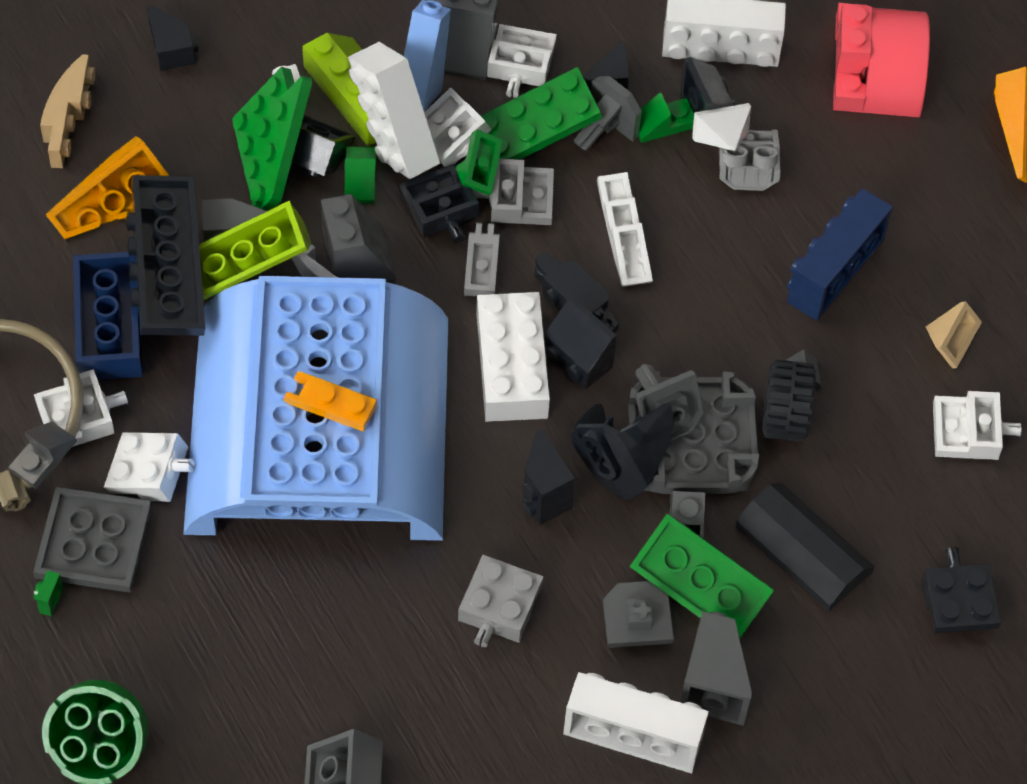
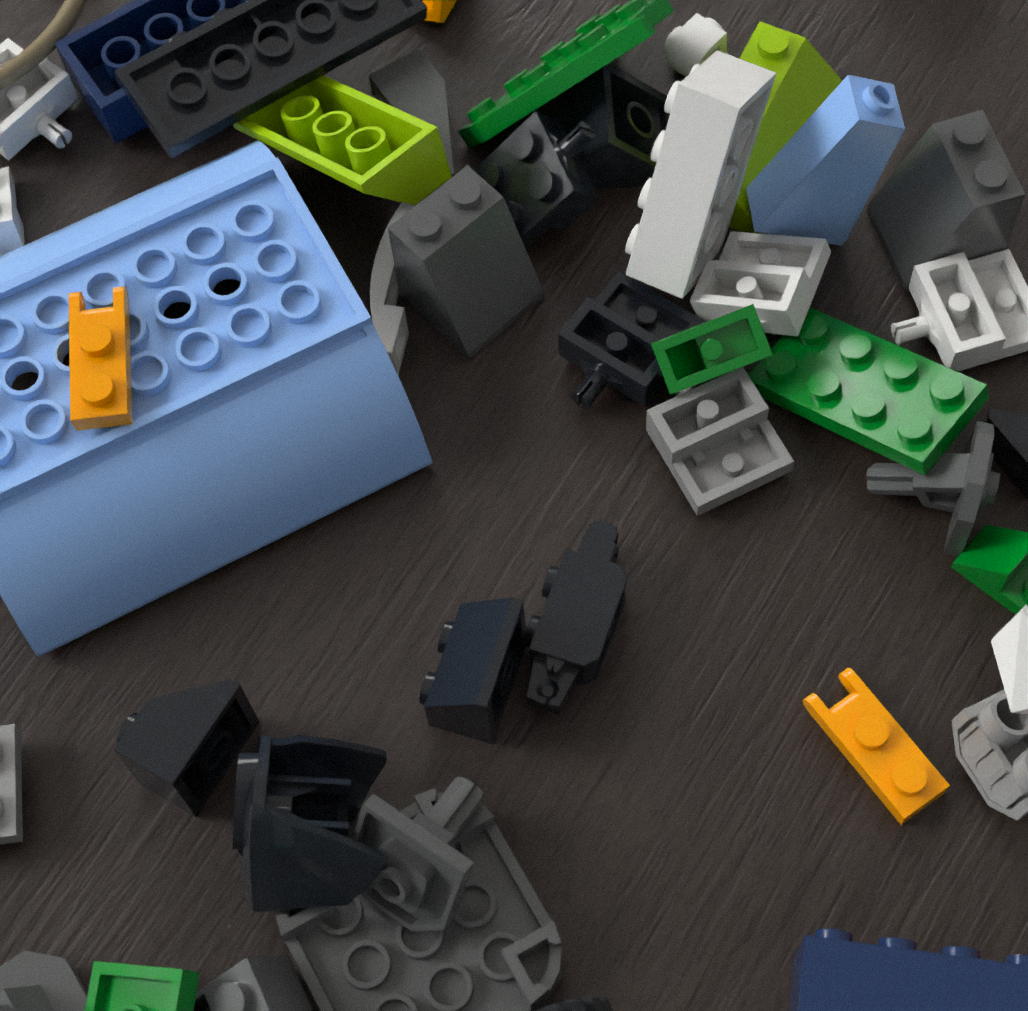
camera: 70 degrees right, 5 degrees up
(319, 181) = (541, 175): none -> black plate
(360, 173) = (607, 221): green slope -> none
(481, 262) = (561, 452): light grey hinge -> none
(512, 357) = (404, 581): white brick -> none
(624, 229) = (754, 626): white slope -> none
(711, 216) = (878, 749): none -> light orange hinge

